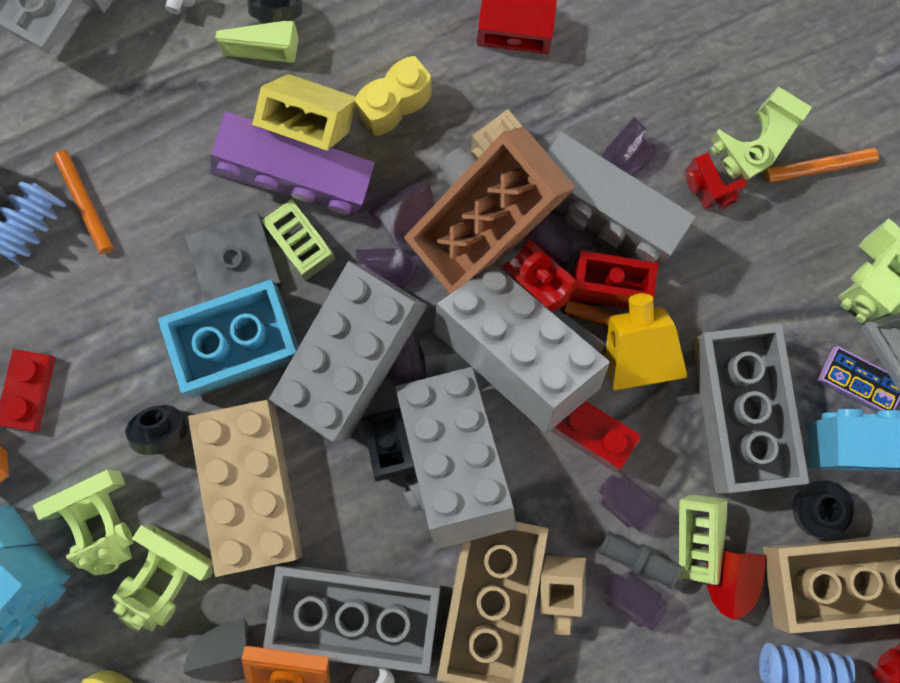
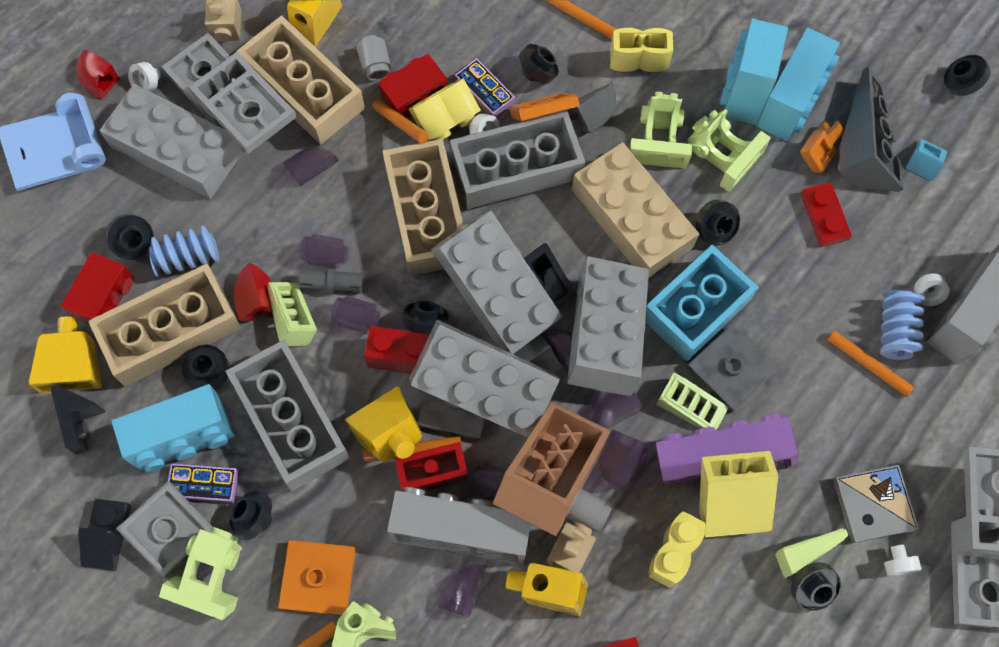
camera: 155 degrees right, 10 degrees down
(167, 61) = (875, 504): none -> tile
(541, 107) = (564, 591): none -> yellow torso
(541, 276) = (490, 442): red hips -> none
(549, 460) = (422, 315): none -> black plate
(563, 590) = (379, 235): tan brick -> none
(705, 181) = (390, 591): red bracket -> none
(770, 230) = (317, 578): none -> orange plate
(823, 318) = (250, 515): none -> black plate

